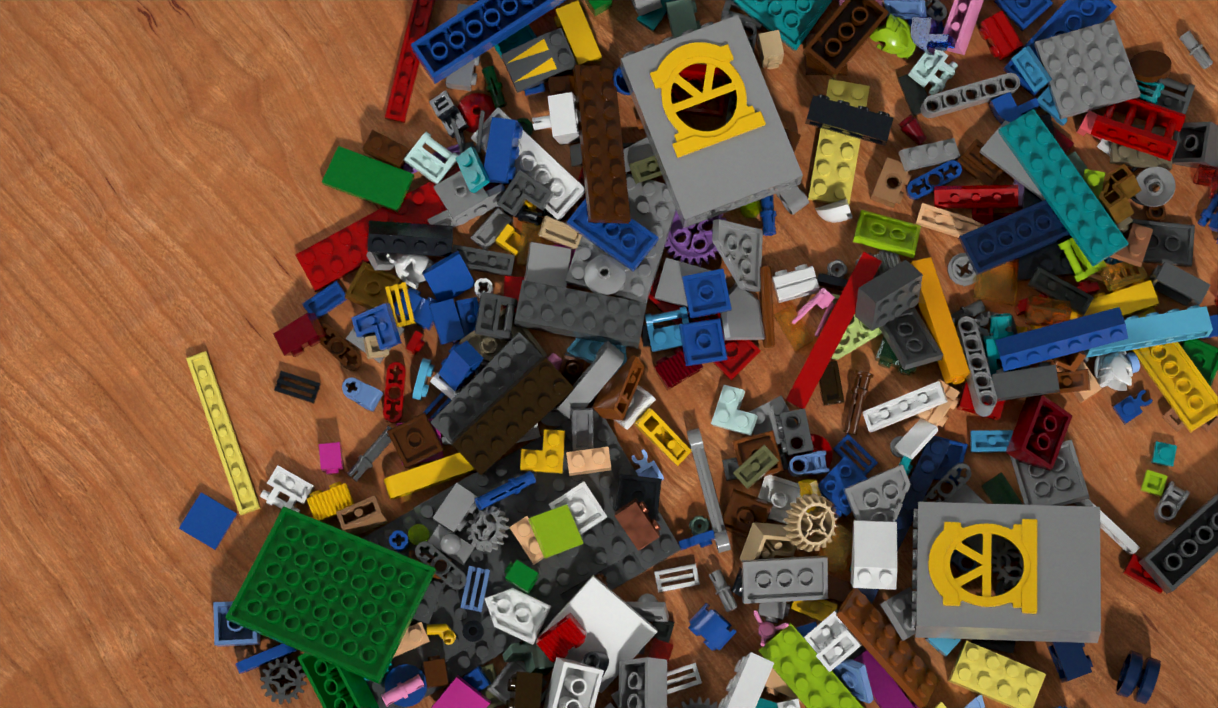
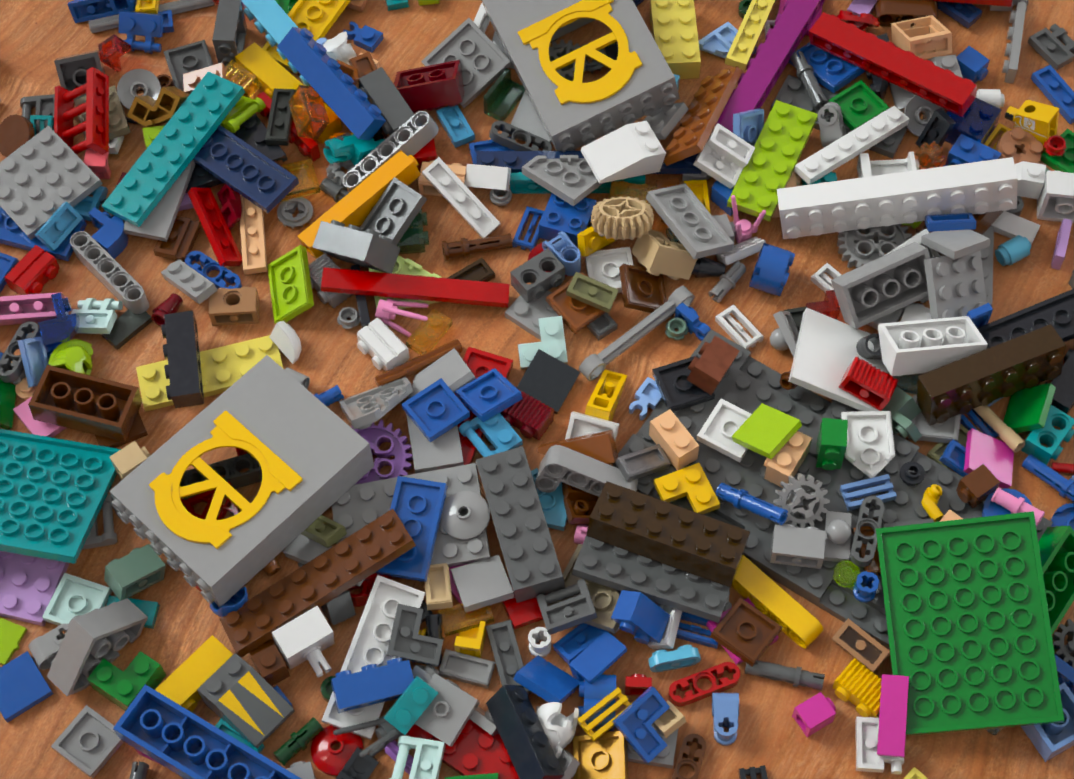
camera: 115 degrees left, 20 degrees down
(297, 506) = (893, 716): none -> dark pink tile
(698, 397) = (548, 380): none -> black tile
(746, 620) = (741, 250): none -> white tile

